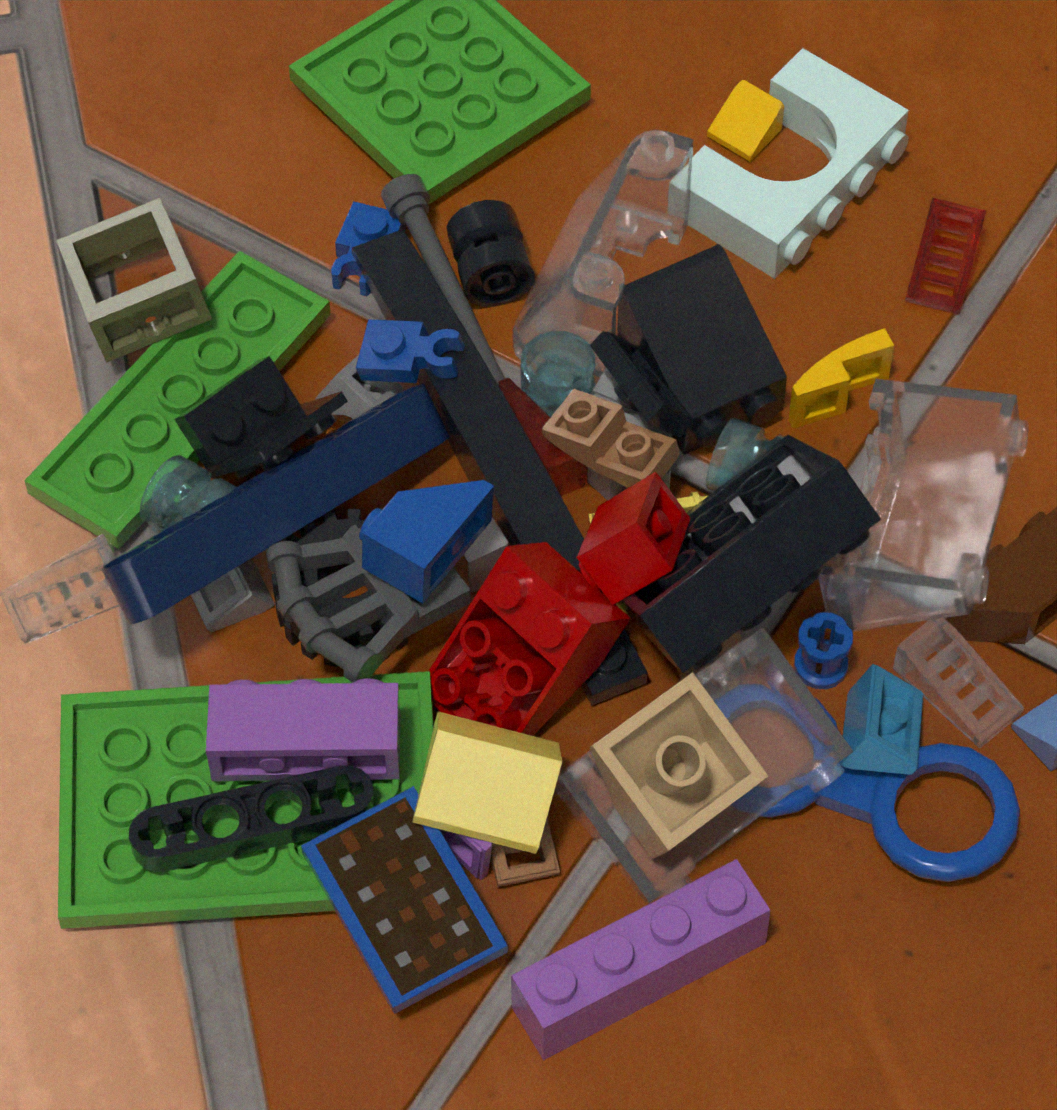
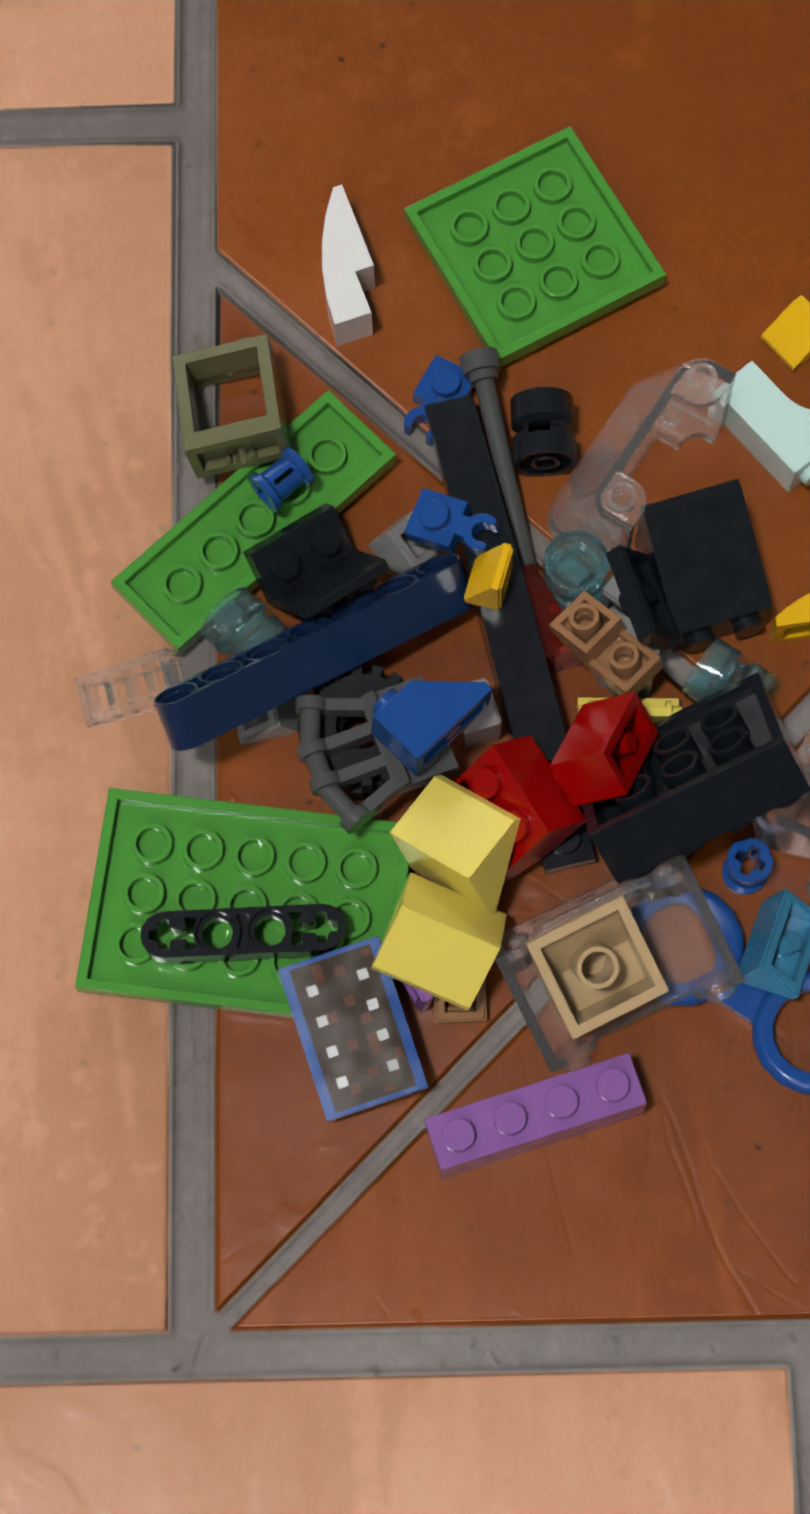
camera: 15 degrees right, 15 degrees up
(204, 339) = (290, 464): none -> blue bush
(237, 137) = (346, 271): none -> white slope
(302, 728) = (298, 864): medium lavender brick -> none
(465, 392) = (490, 577): none -> yellow slope
(487, 666) = (458, 841): none -> light yellow slope

